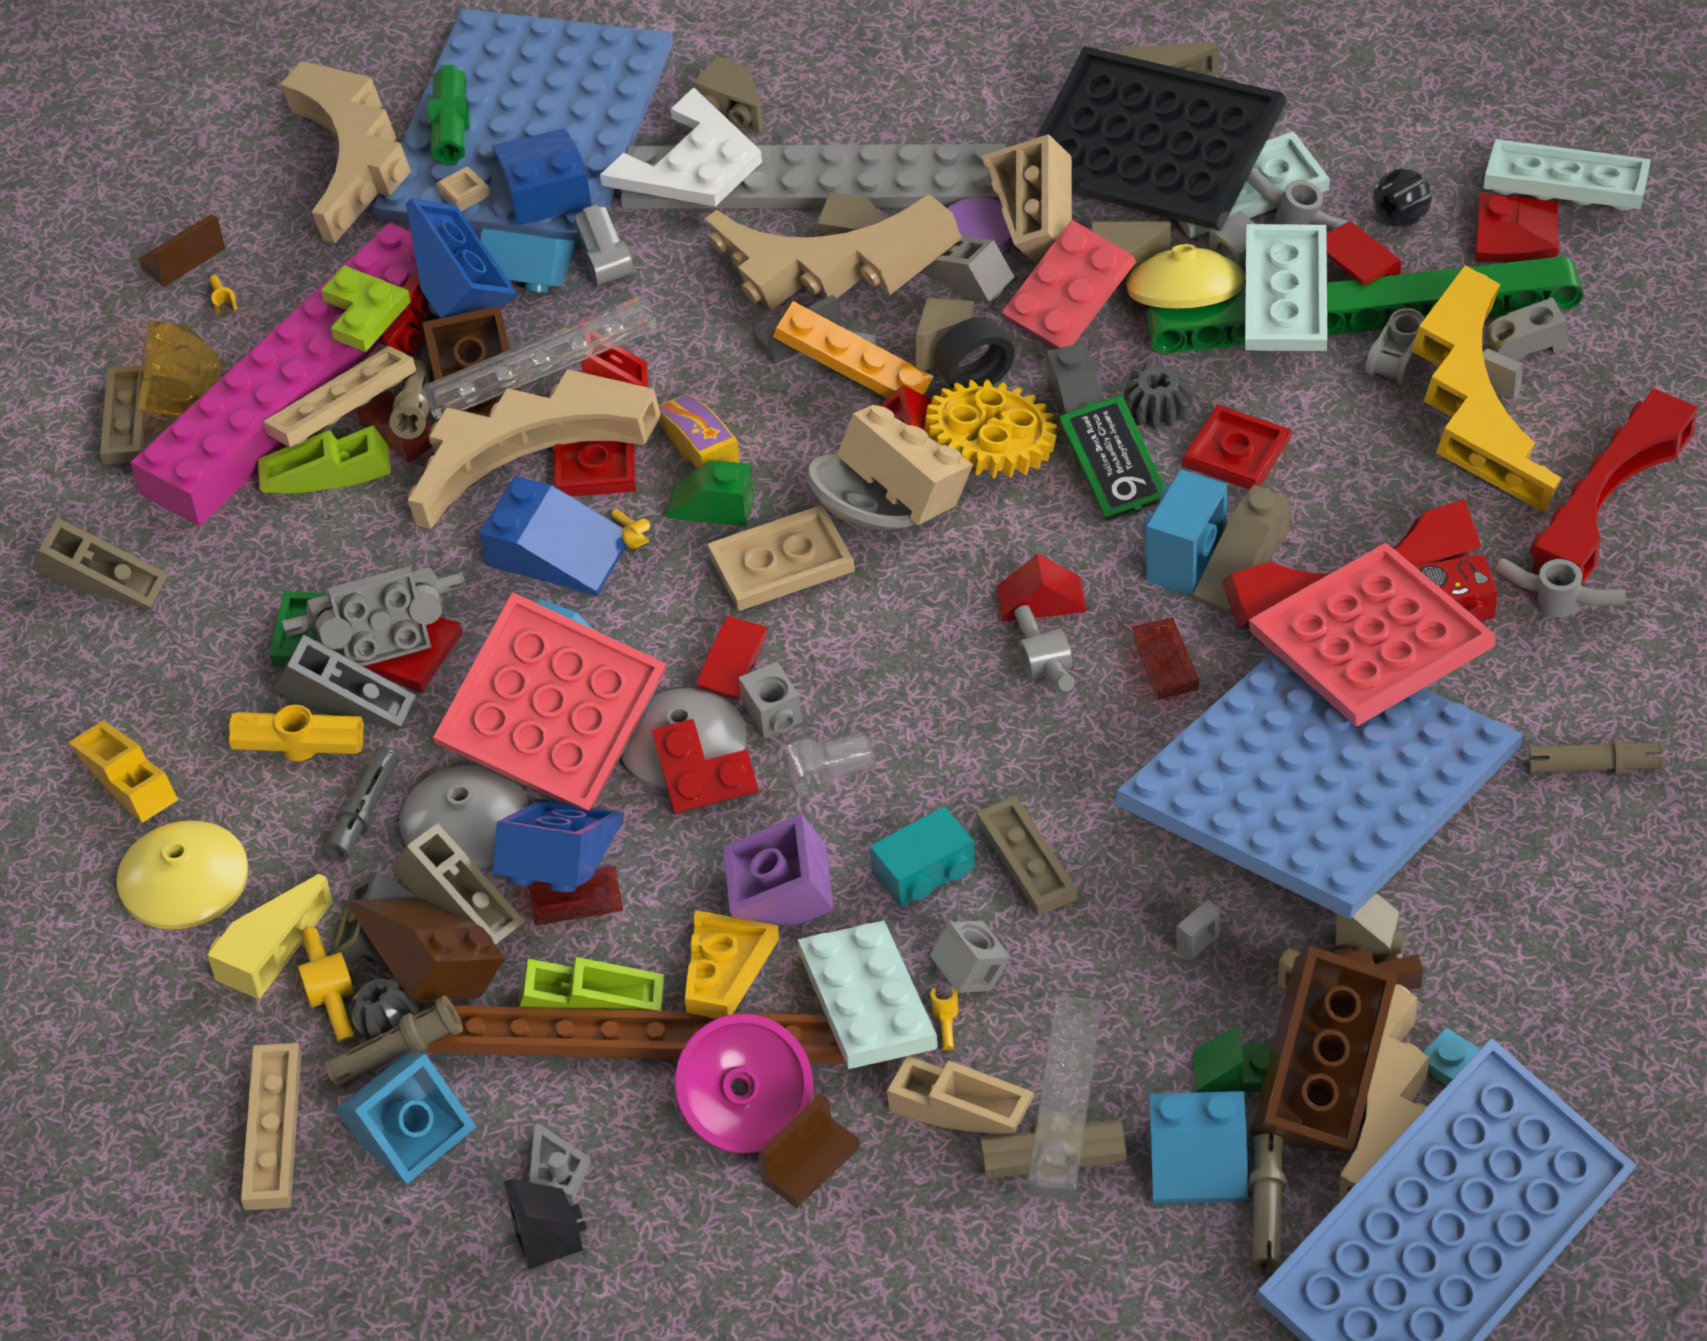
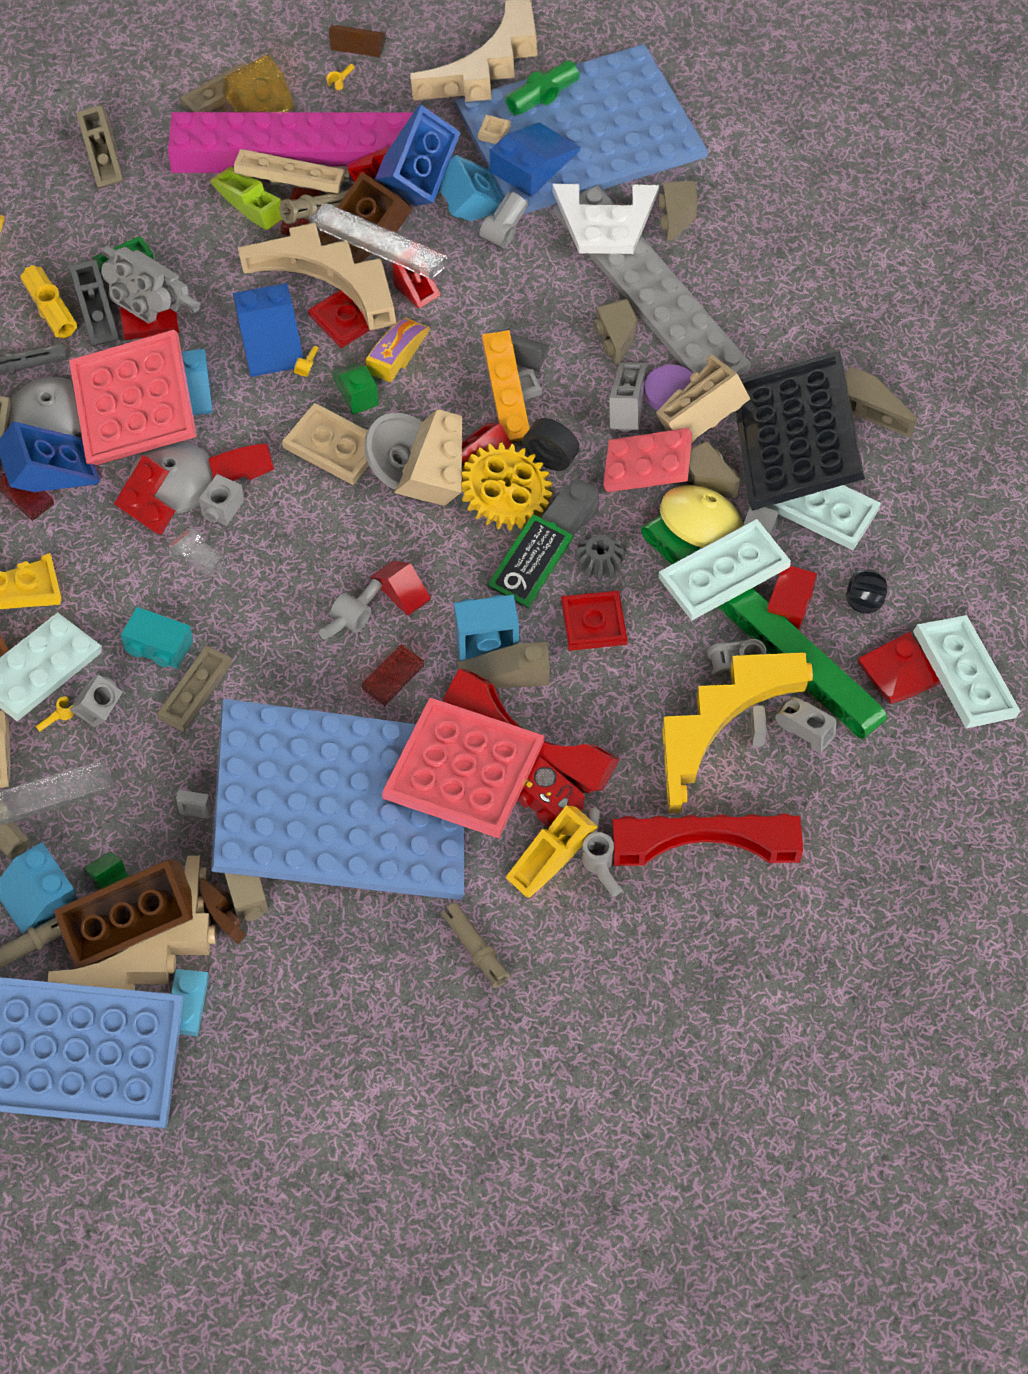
camera: 50 degrees right, 10 degrees up
(368, 304) = (354, 144): lime plate -> none
(779, 874) = (94, 577): medium lavender slope -> none
(831, 264) = (588, 350): tan arch -> none
(936, 320) = (568, 411): dark tan slope -> none
(1296, 204) = (820, 532): light grey piece -> none
(1527, 626) = (551, 850): none -> yellow slope

